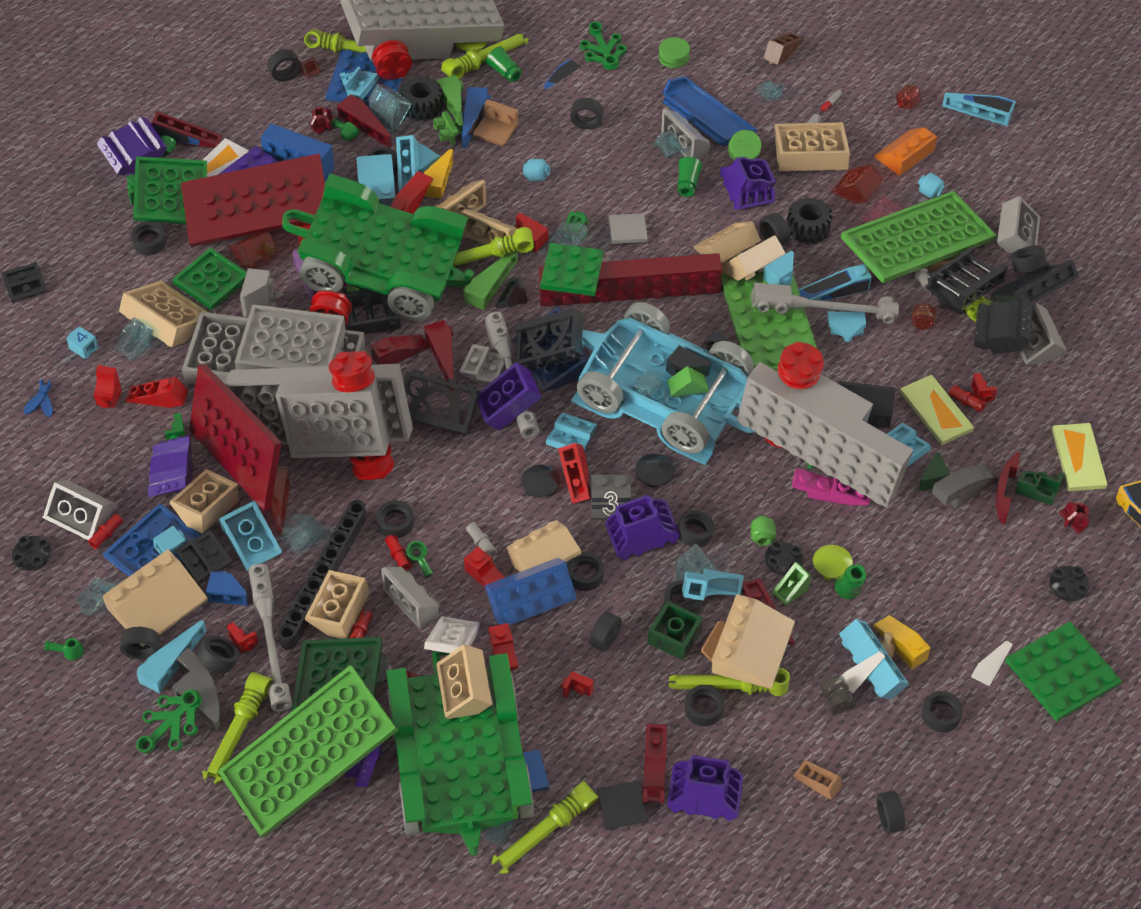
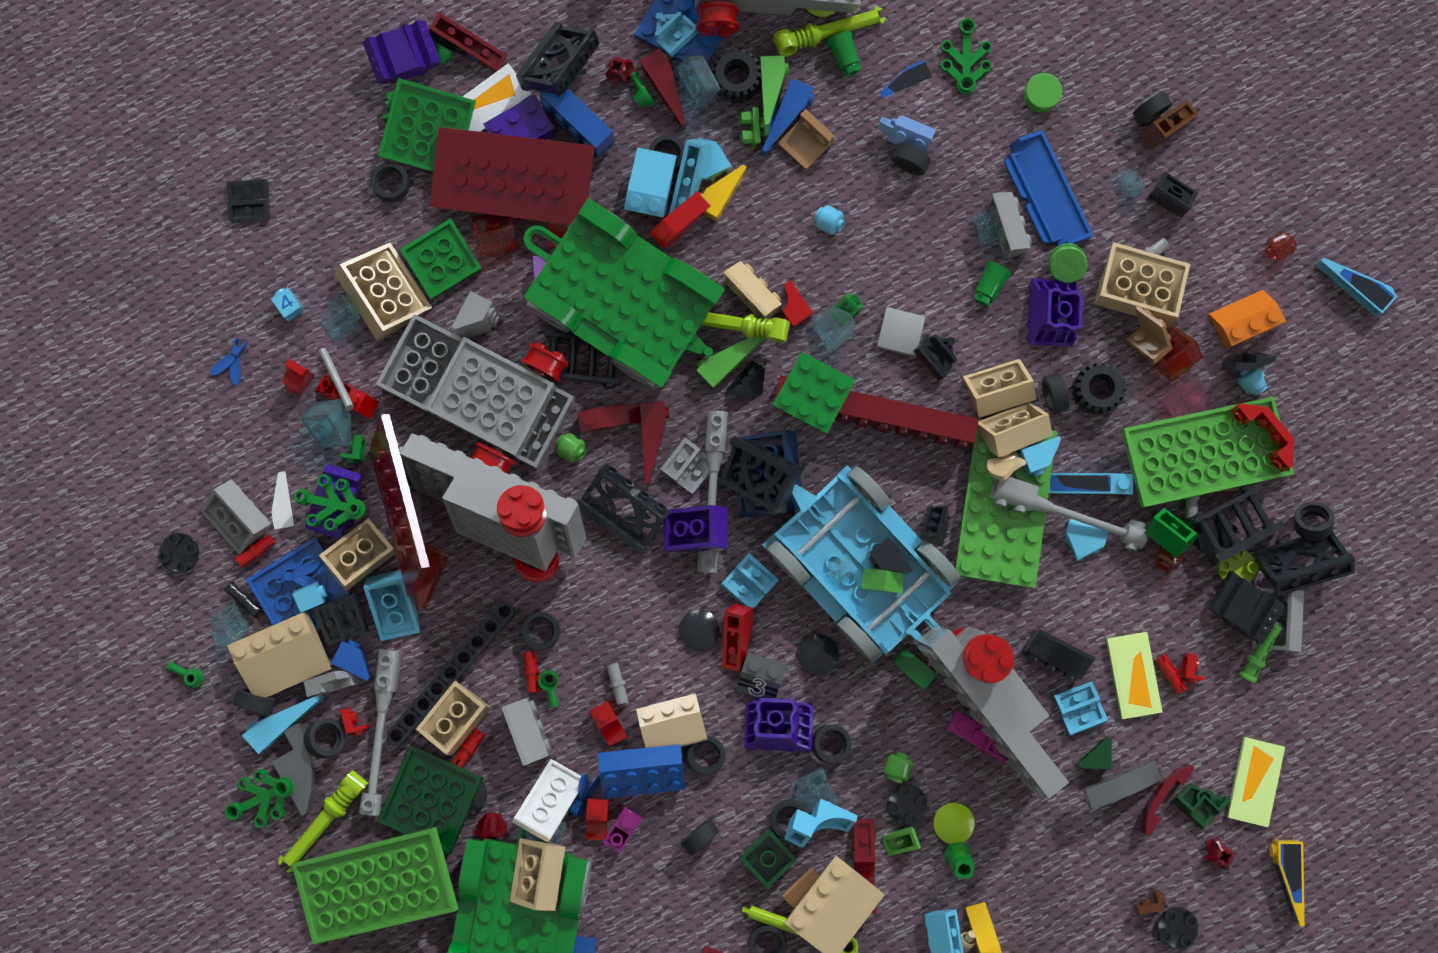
camera: 20 degrees right, 30 degrees up
(94, 569) = (243, 599): none -> black pin
(119, 493) = (281, 507): none -> white sticker
(144, 378) = (336, 379): none -> light grey bar
(147, 413) = (328, 423): none -> clear light blue slope
(191, 455) = (333, 504): none -> green plant
(210, 608) = (330, 682): none -> light grey slope
(257, 122) = (555, 42): none -> black fence
(303, 532) = (447, 614): clear light blue slope -> none
(468, 198) = (730, 244): tan slope -> none
(482, 630) = (584, 793): none -> blue piece
(531, 644) = (622, 829): none -> magenta slope
(568, 97) = (907, 131): none -> medium blue hinge
(579, 683) = (658, 884): red bracket -> none
(664, 233) = (936, 354): none -> black slope
(745, 456) = (914, 669): none -> green slope
(759, 278) = (1003, 467): none -> tan arm
(762, 36) = (1152, 108): none -> black tyre
(807, 90) = (1173, 194): none -> black slope
(831, 101) = (1192, 219): piece -> none
(835, 169) = (1151, 337): none -> medium nougat bracket
(916, 291) = (1171, 533): none -> green slope
(921, 168) = (1249, 361): none -> black slope
(961, 203) = (1282, 457): none -> red slope
(1017, 225) = (1322, 470): light grey slope -> none
(1033, 366) = (1257, 660): none -> bright green pin
(1037, 569) = (1148, 906): none -> reddish brown bracket

